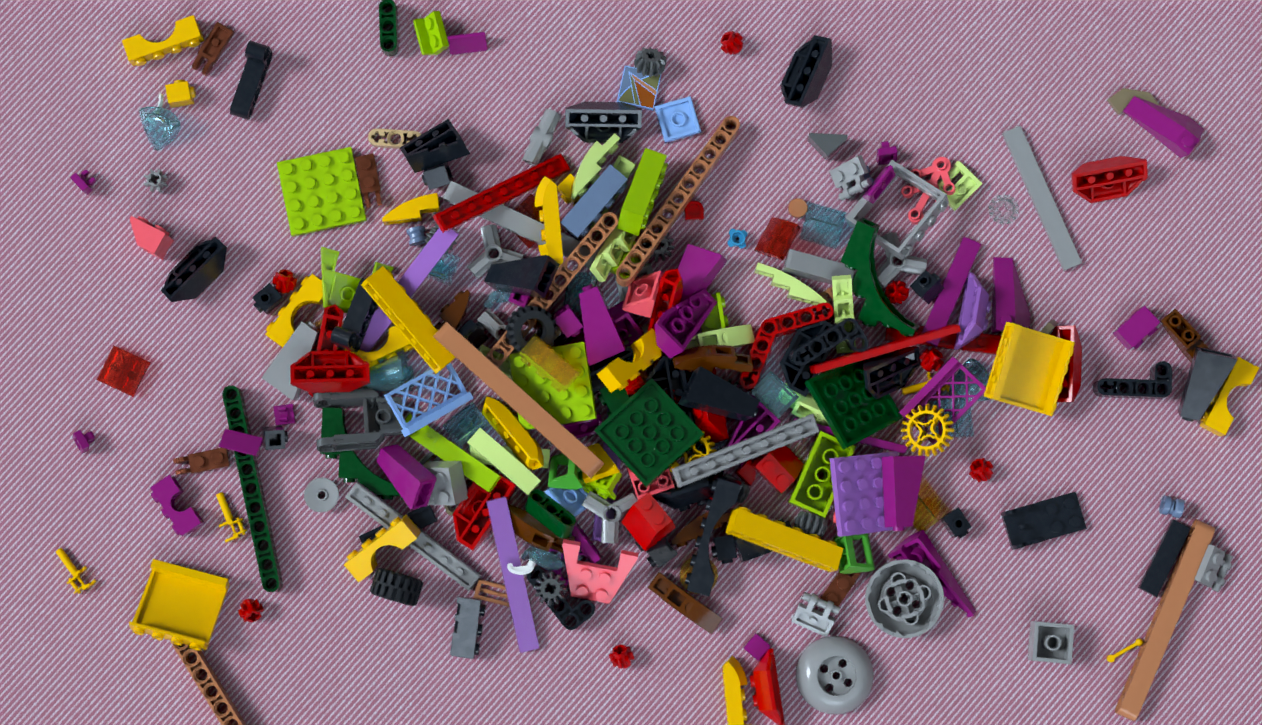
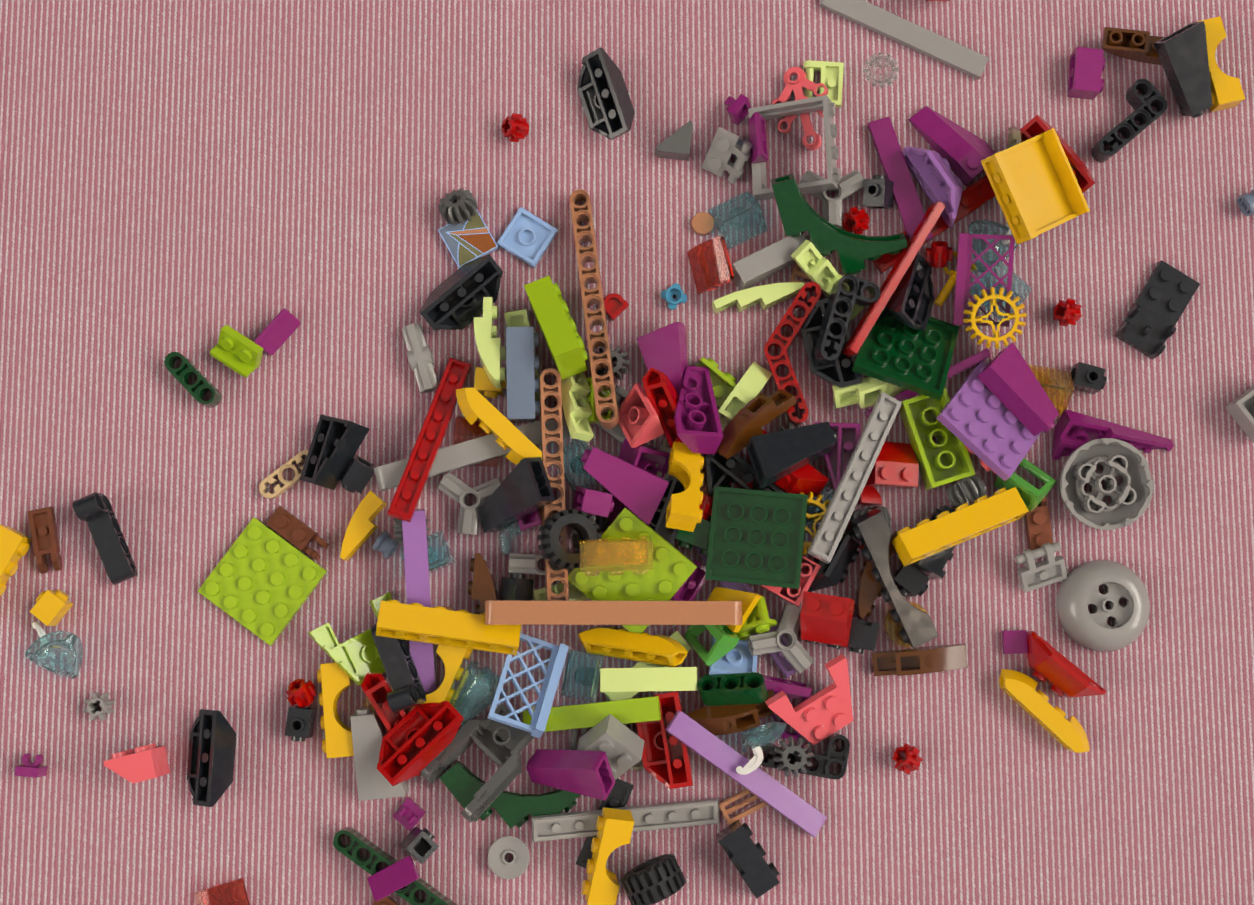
camera: 40 degrees left, 0 degrees up
(774, 395) = (833, 404): clear light blue slope -> none

